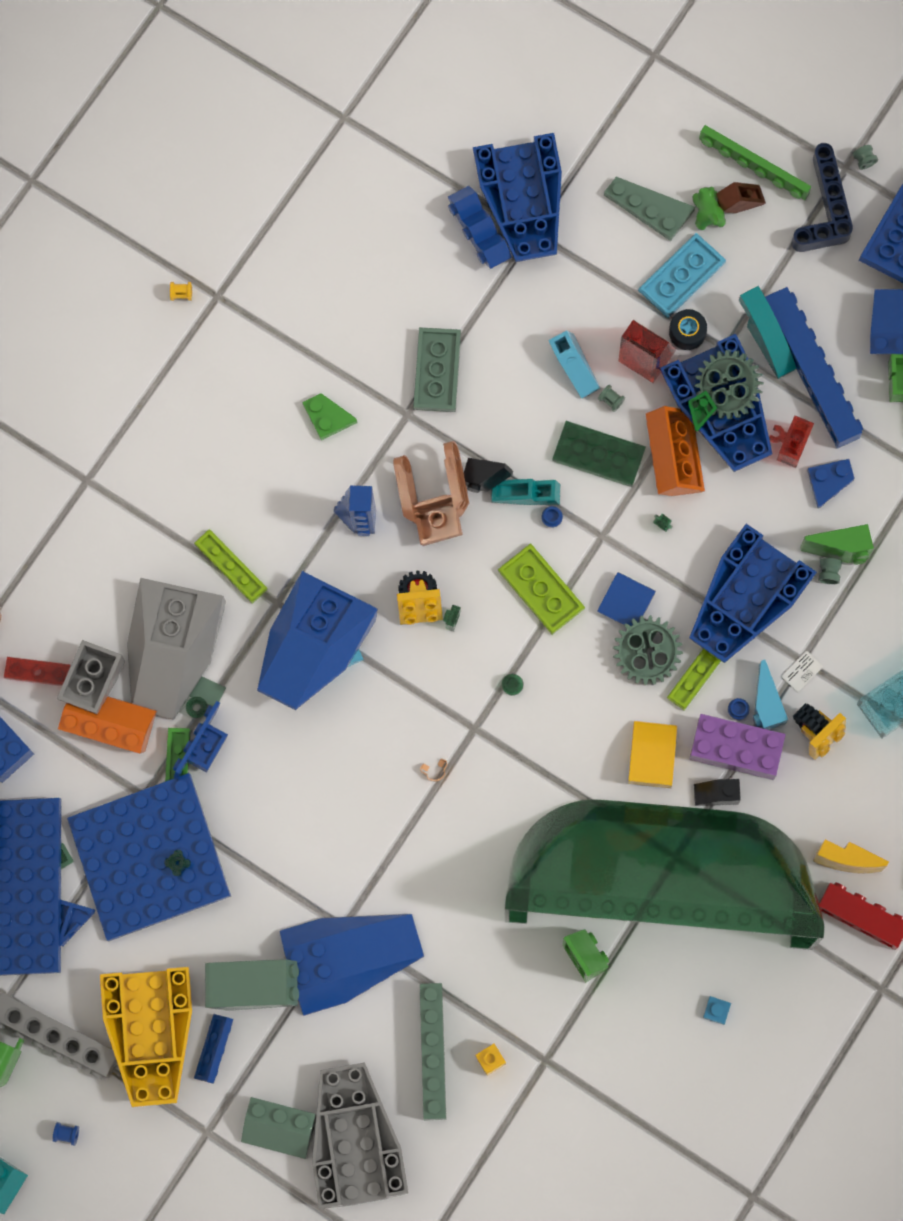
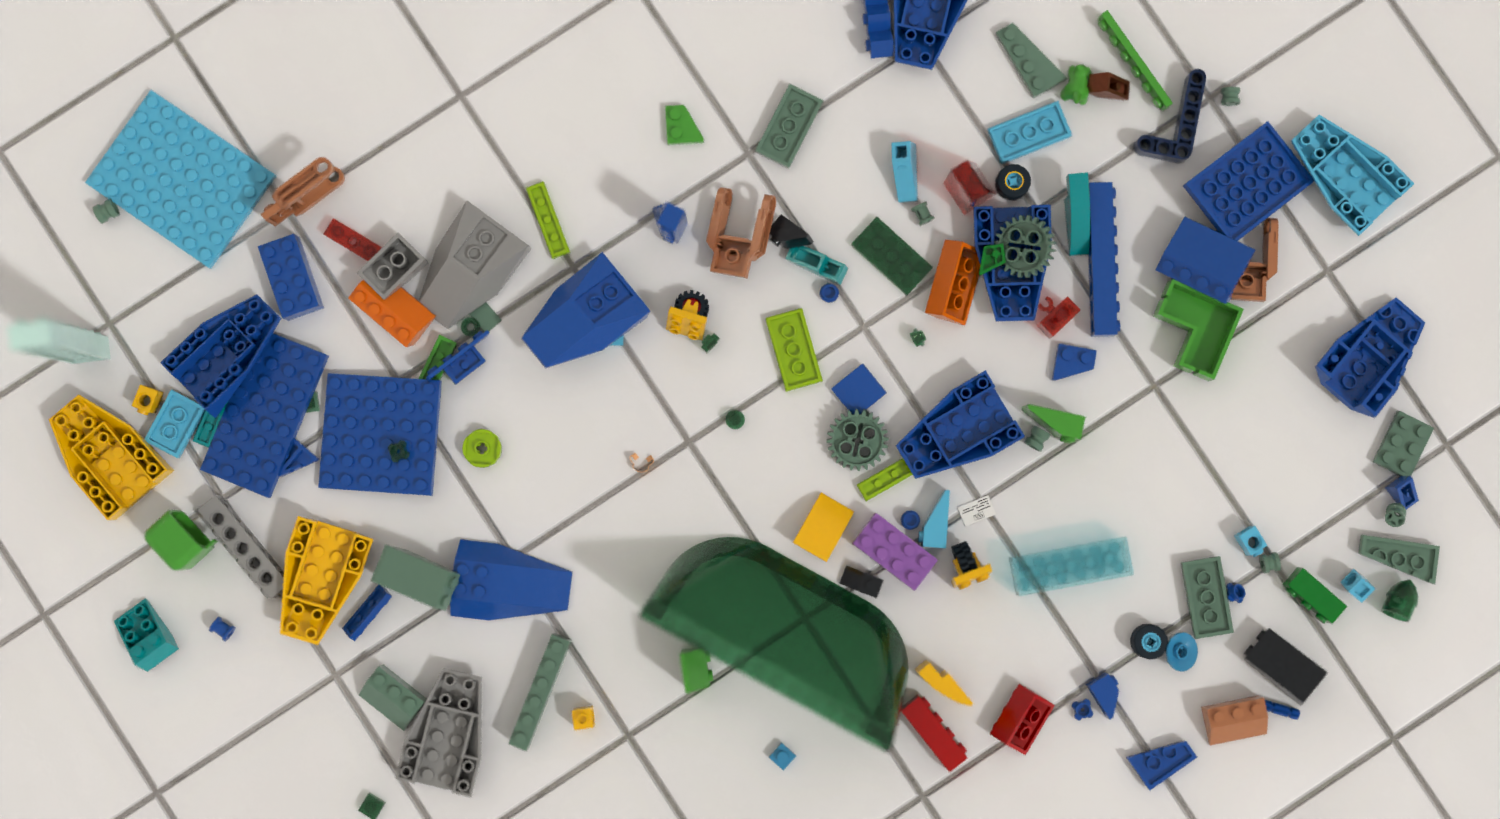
camera: 20 degrees right, 10 degrees up
(269, 815) = (474, 440): none -> lime plate

